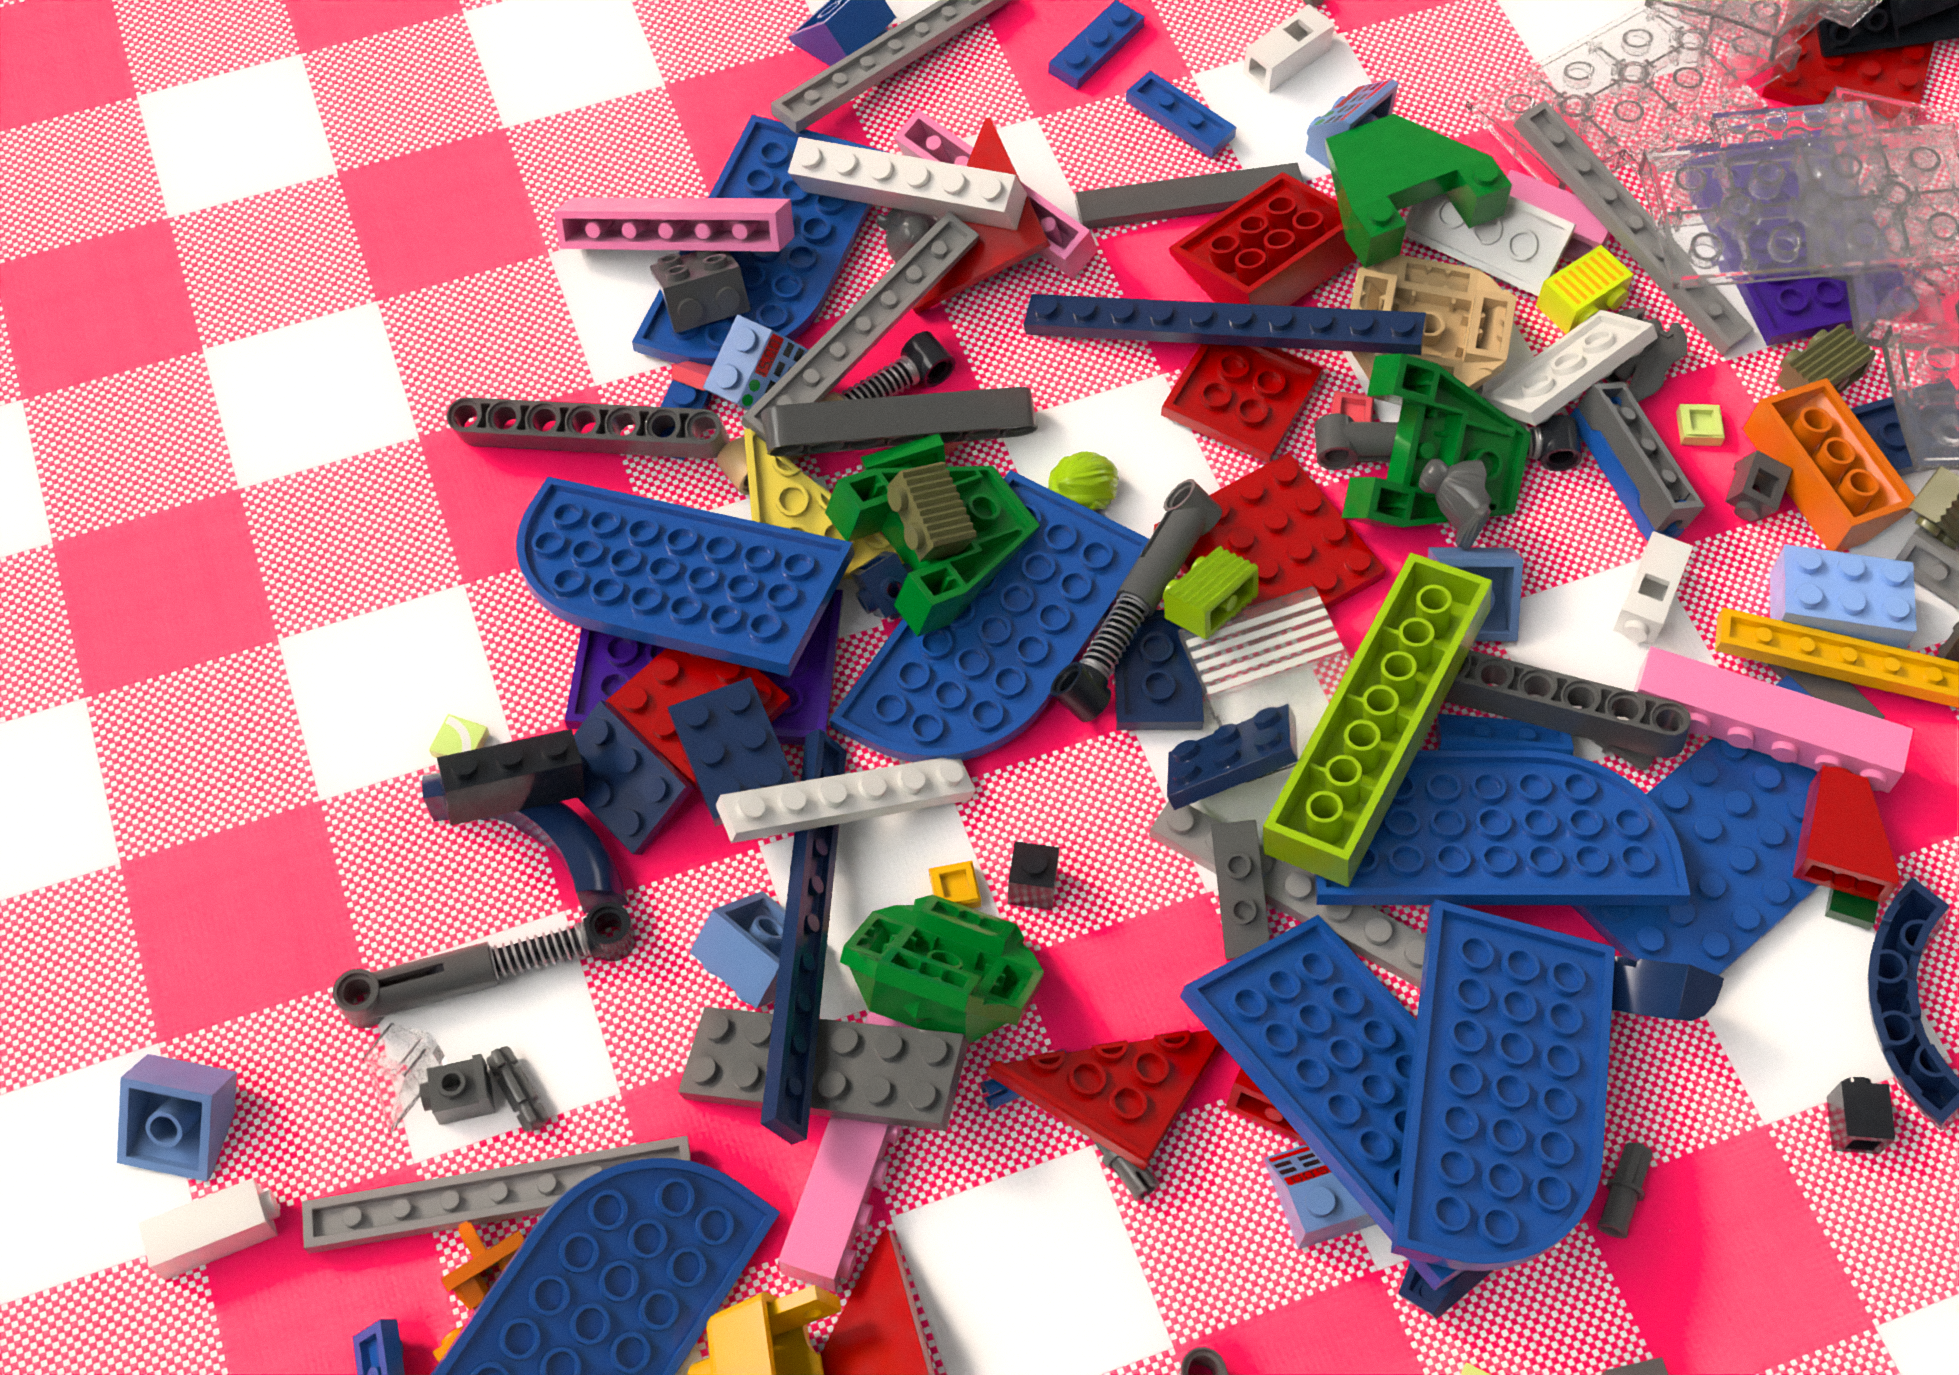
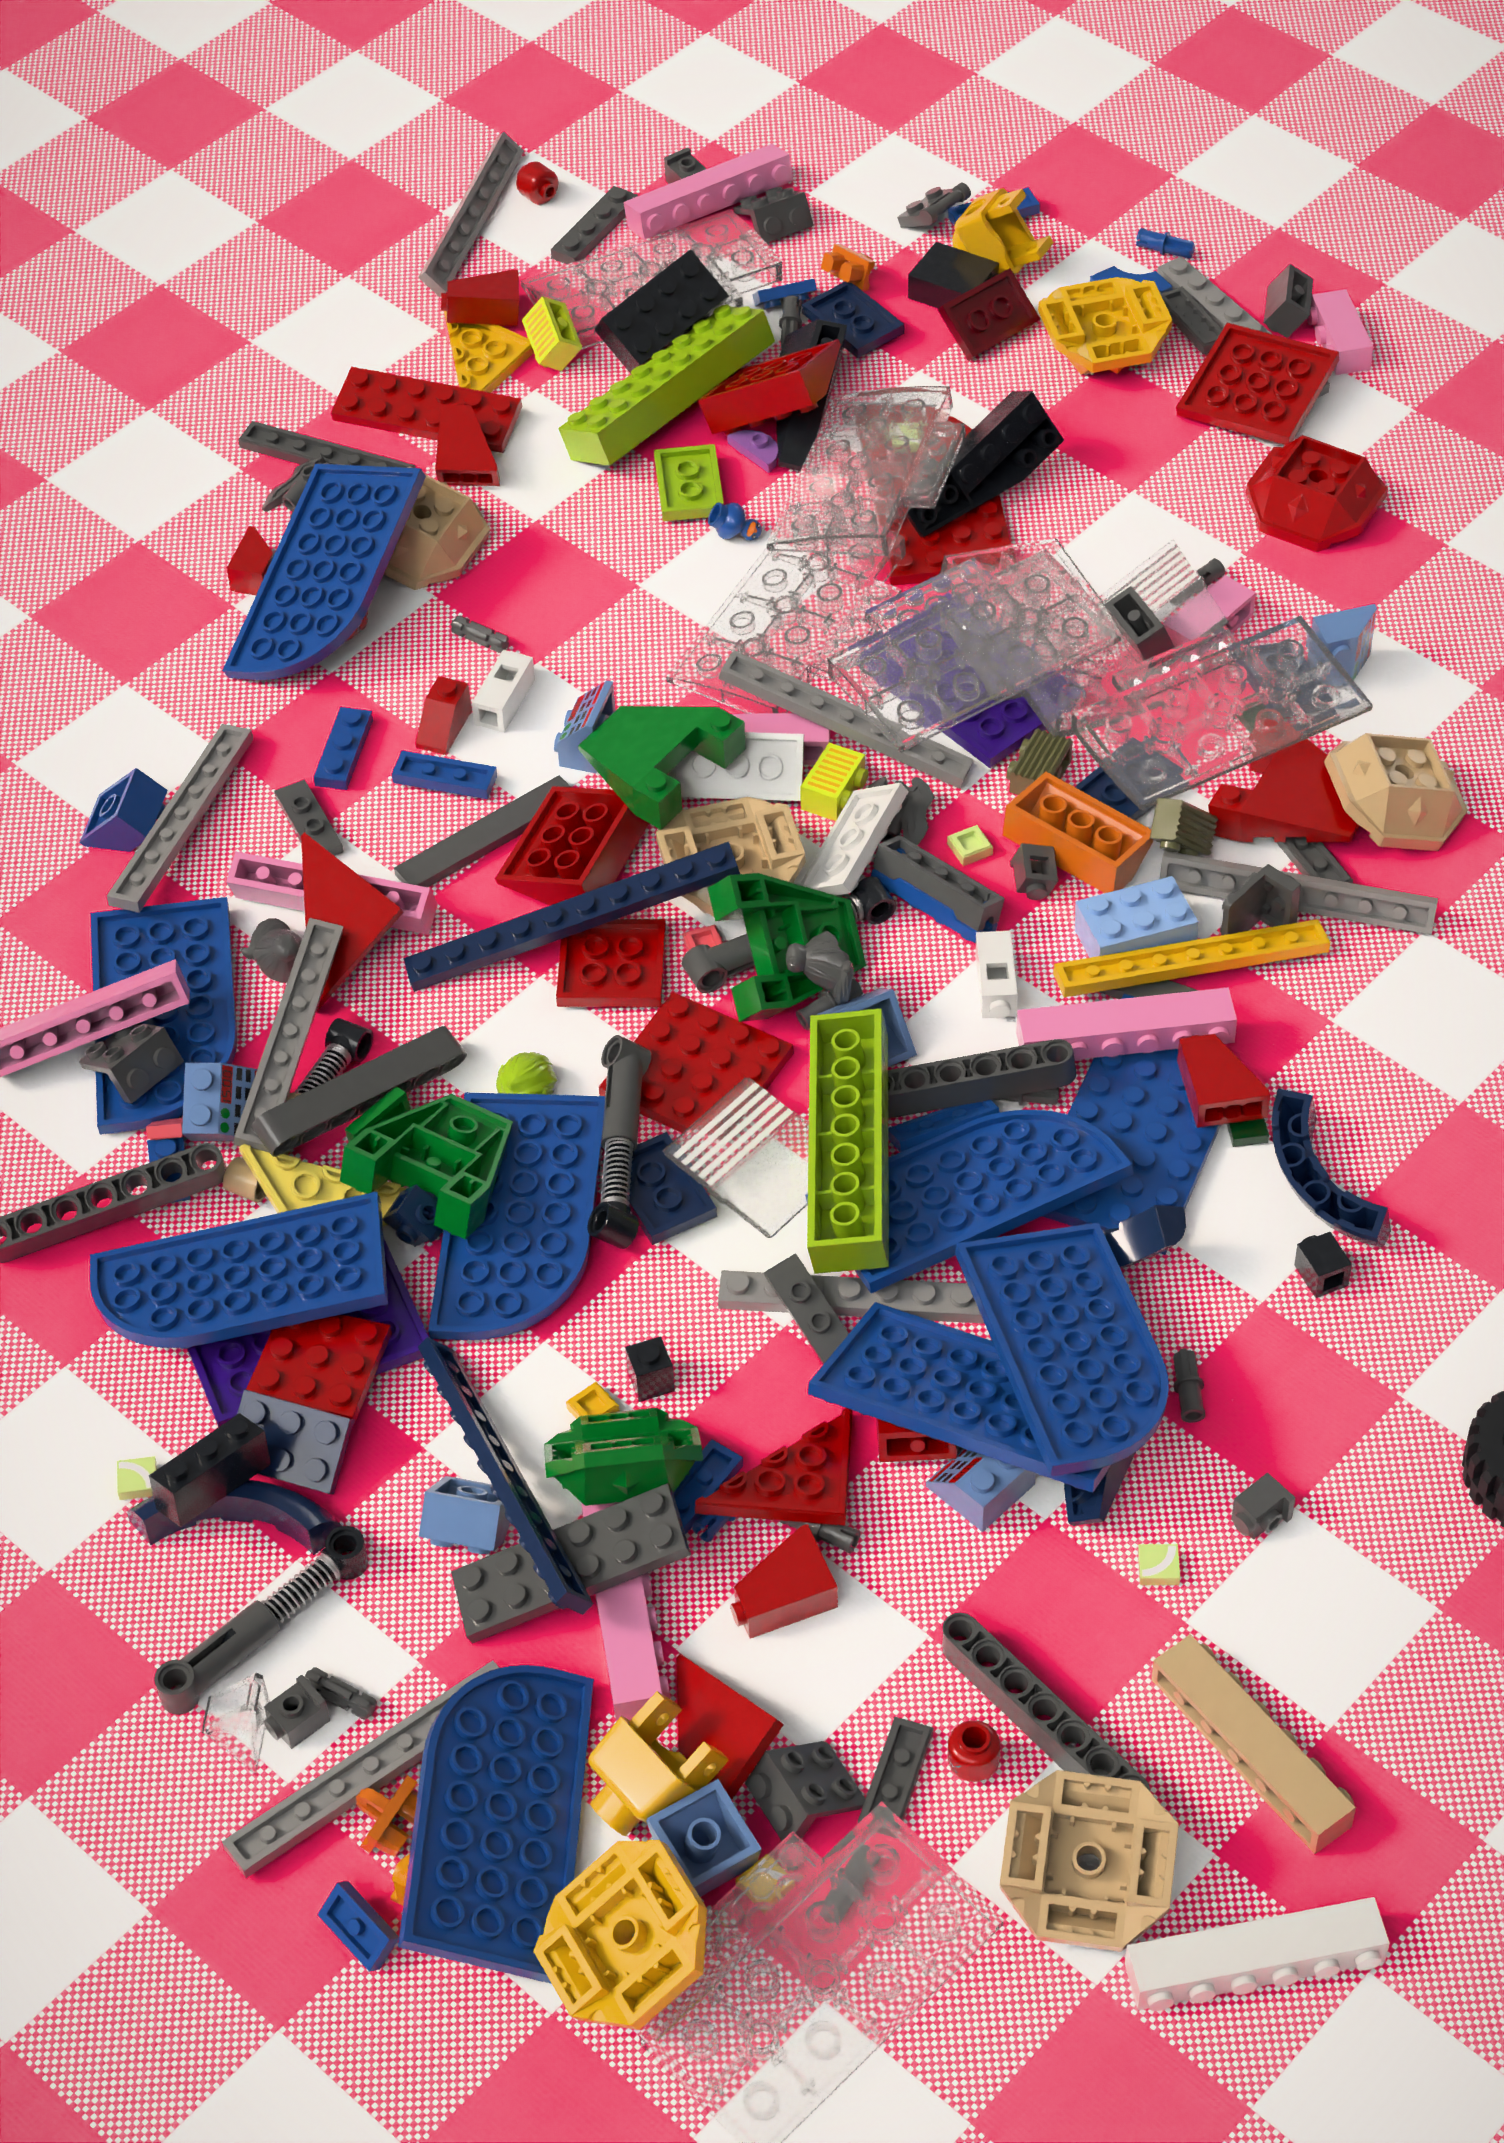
camera: 25 degrees left, 10 degrees down
(174, 1116) = (80, 1835): medium blue slope -> none
(209, 1228) = (159, 1894): white brick -> none
(729, 743) = (372, 1378): dark blue plate -> none
(843, 798) = (478, 1373): white plate -> none
(908, 183) = (262, 910): white brick -> none
(930, 511) = (430, 1139): olive brick -> none
(1020, 106) = (307, 816): none -> dark grey plate
(1039, 1030) = (704, 1479): none -> blue plate
(1041, 1209) = (785, 1587): none -> red slope
(1211, 592) = (673, 1111): lime brick -> none
(1213, 49) = (443, 715): none -> red slope
(1231, 756) = (753, 1217): dark blue plate -> none
(1420, 542) = (824, 1003): none -> dark grey axle

